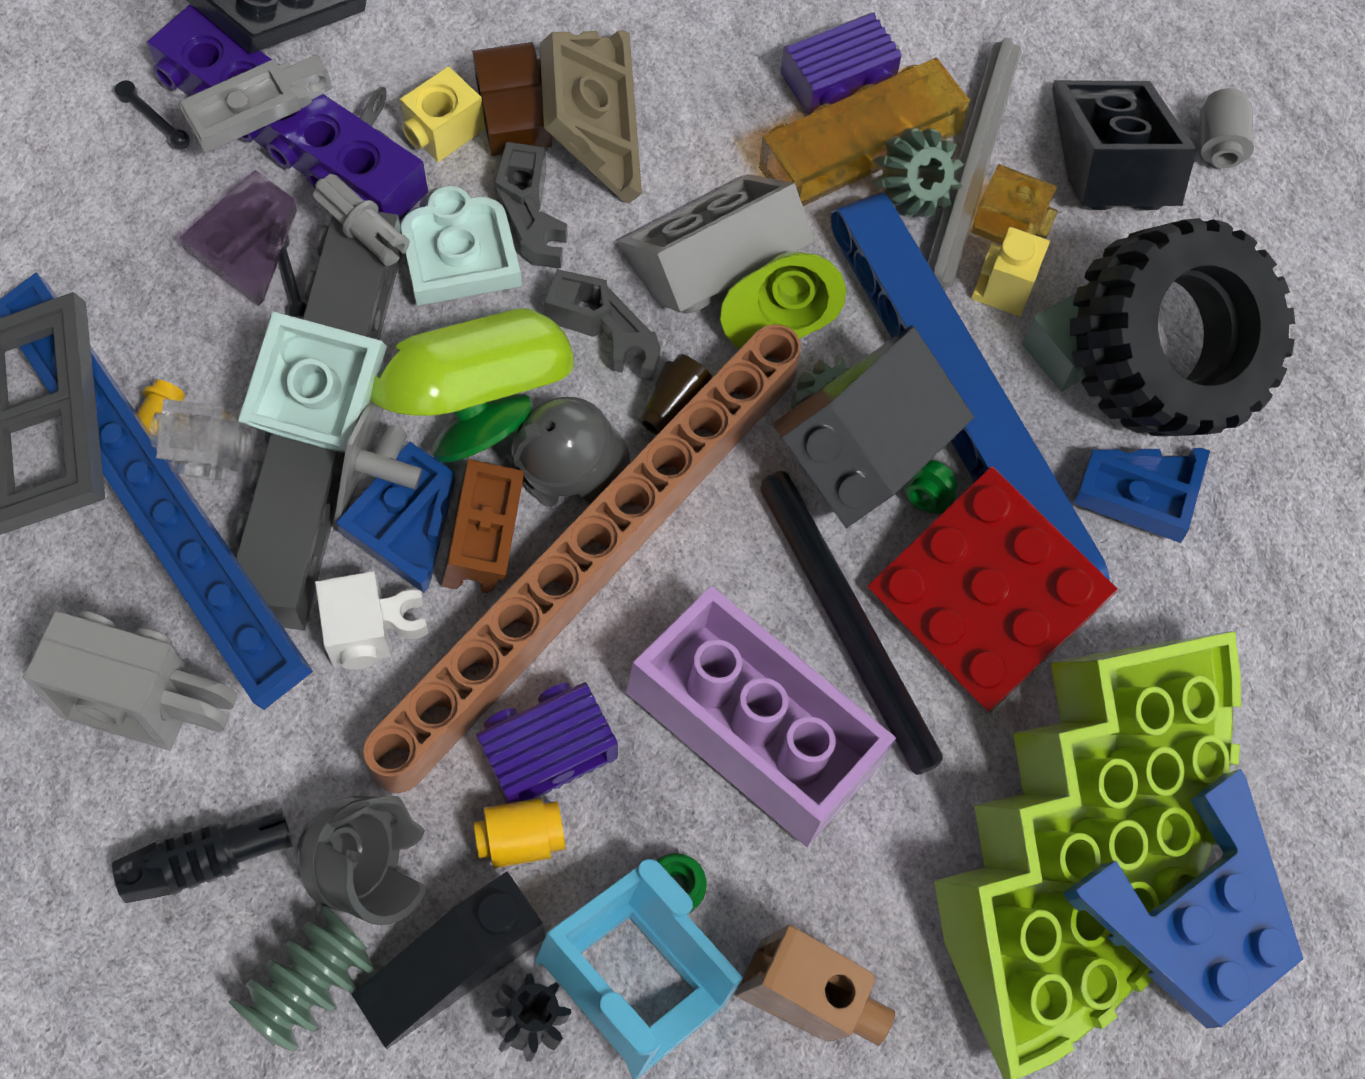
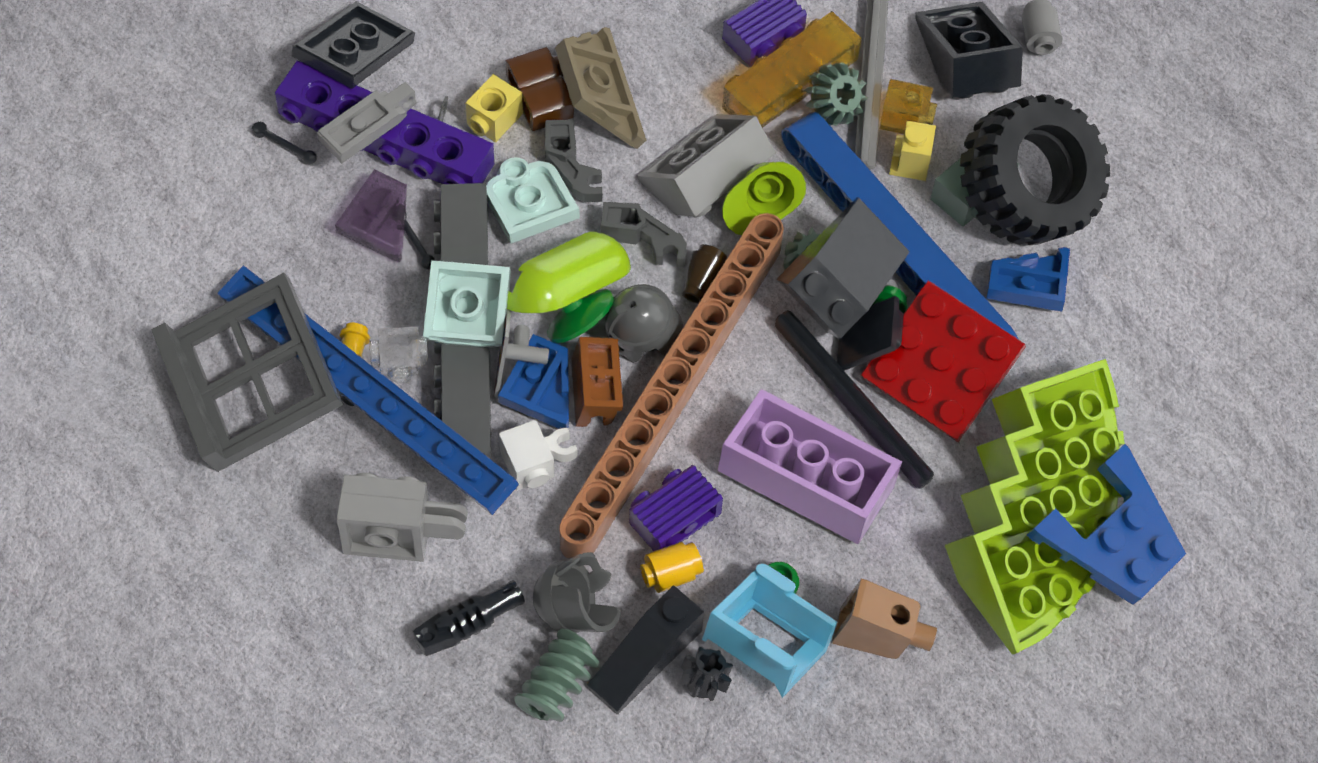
camera: 10 degrees left, 5 degrees down
(360, 218) = (464, 190): light grey axle -> none
(895, 532) = (872, 335): none -> black piece

